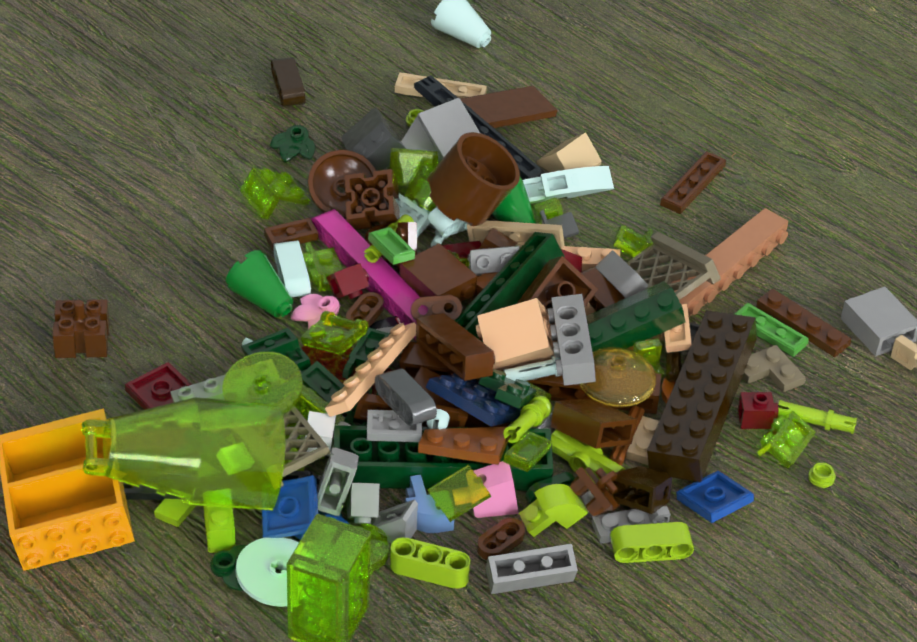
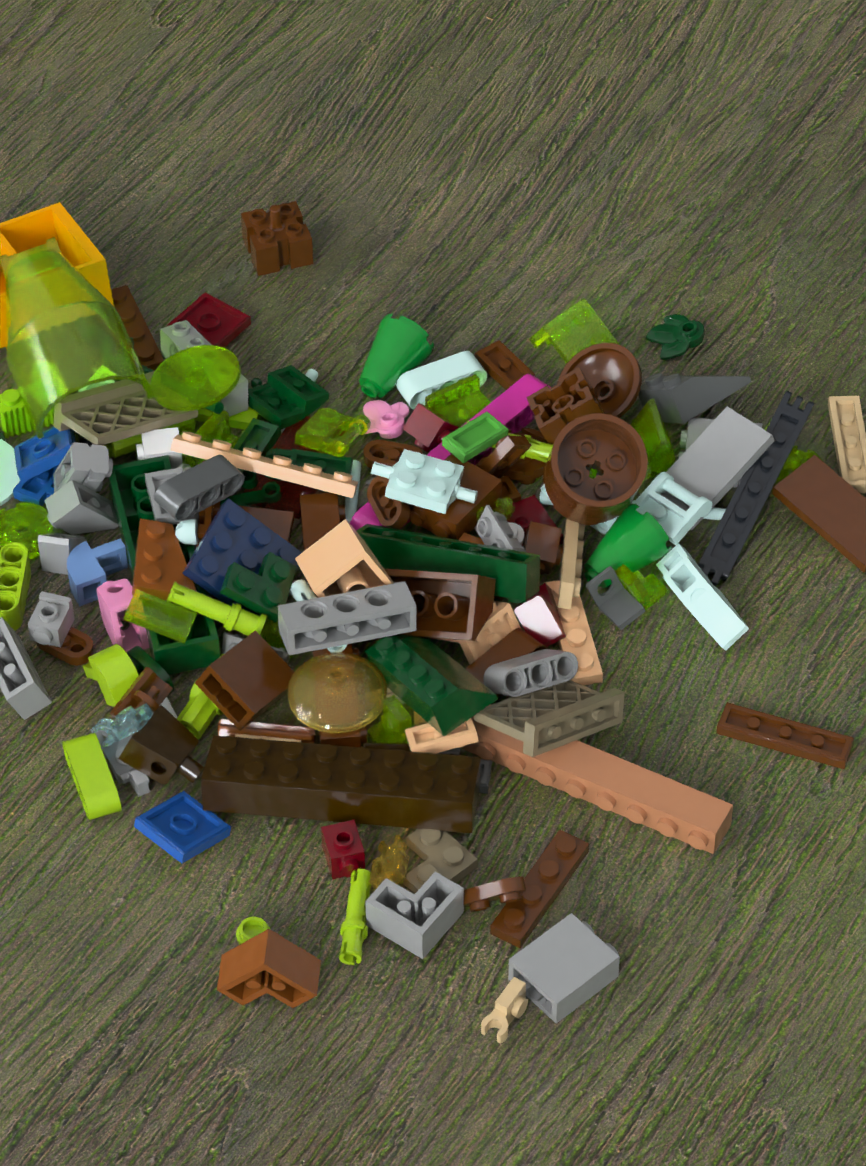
camera: 80 degrees right, 5 degrees up
(288, 81) = (790, 301): dark brown beam -> none
(435, 277) = (424, 481): none -> light aqua plate
(455, 346) = (306, 519): reddish brown brick -> none
(459, 493) = (93, 577): clear neon green piece -> none
(490, 533) = (51, 619): none -> light grey brick
(571, 154) = (768, 599): tan slope -> none
(628, 493) = (127, 723): none -> clear light blue plate
(631, 242) = (623, 676): clear neon green bracket -> none
(775, 331) = (515, 848): bright green tile -> none
(780, 385) = (391, 863): none -> clear yellow plate
(787, 439) = (301, 888): clear neon green bracket -> none
(815, 337) = (505, 890): none -> reddish brown plate
(828, 378) = (418, 918): none -> light grey brick
(869, 467) = (269, 966): none -> dark orange brick

